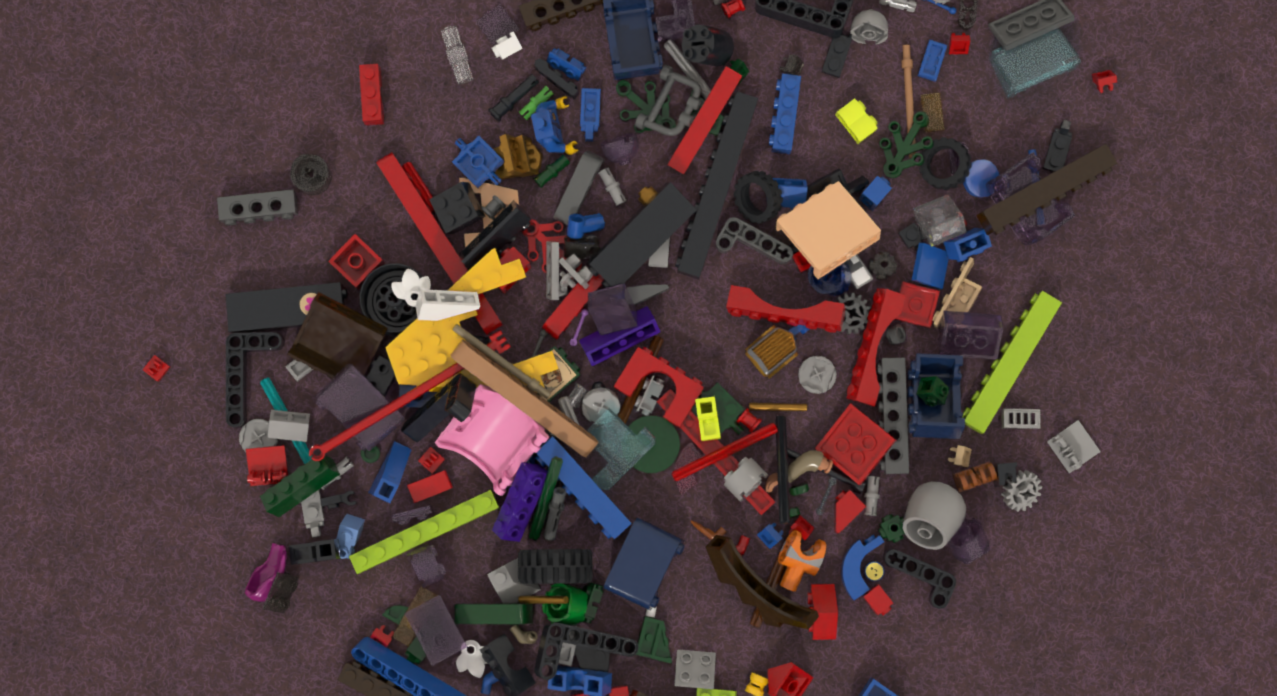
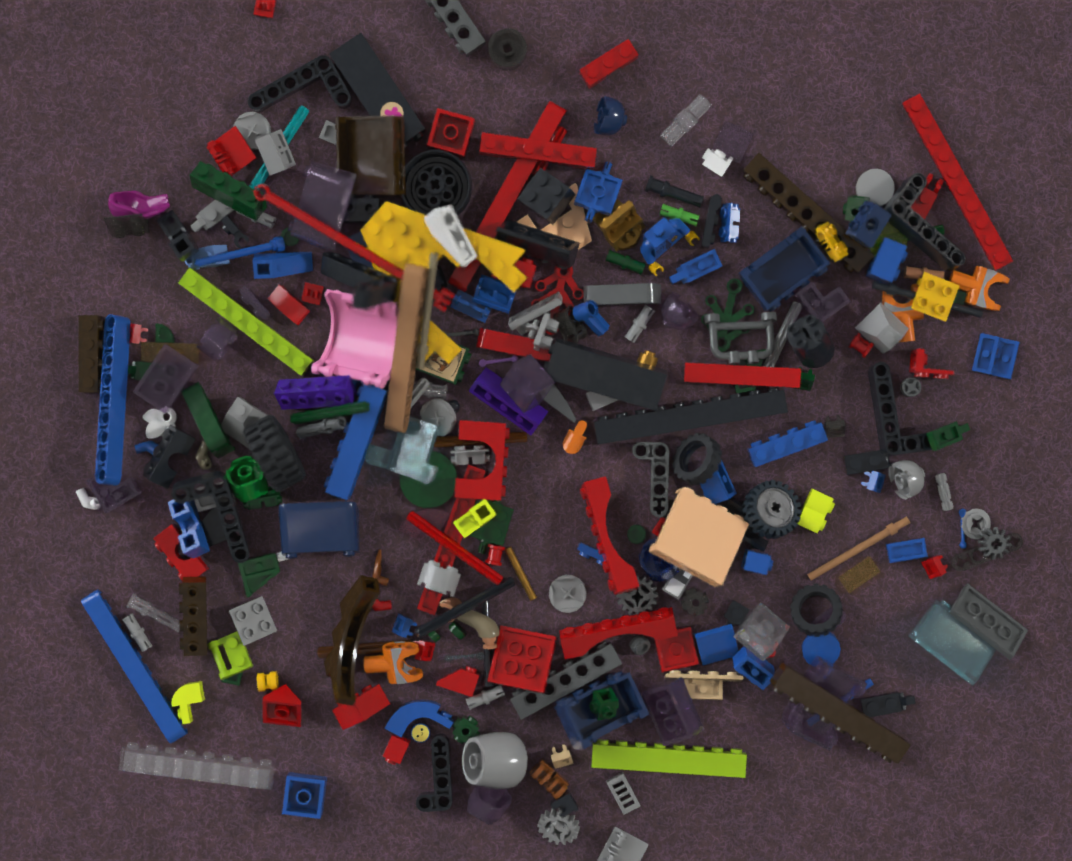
camera: 65 degrees right, 5 degrees up
(370, 469) = (276, 244): none -> blue piece
(410, 285) = (453, 193): white plate -> none
(416, 115) = (610, 116): none -> dark blue cylinder
(427, 175) = (538, 150): none -> red arch
(493, 207) = (563, 228): dark grey bush -> none
(518, 298) = (493, 294): none -> blue hinge
(518, 325) = (464, 304): none -> blue hinge
(543, 599) = (241, 458): pearl gold bar -> none
(683, 295) = (574, 440): none -> orange arm
(772, 351) = (565, 543): pearl gold piece -> none
(796, 286) = (636, 534): none -> dark green tile
(836, 155) = (759, 512): none -> wheel
(858, 55) = (875, 482): none -> tile
(905, 148) = (813, 567): dark green plant -> none
(1104, 78) = (971, 713): red tile -> none

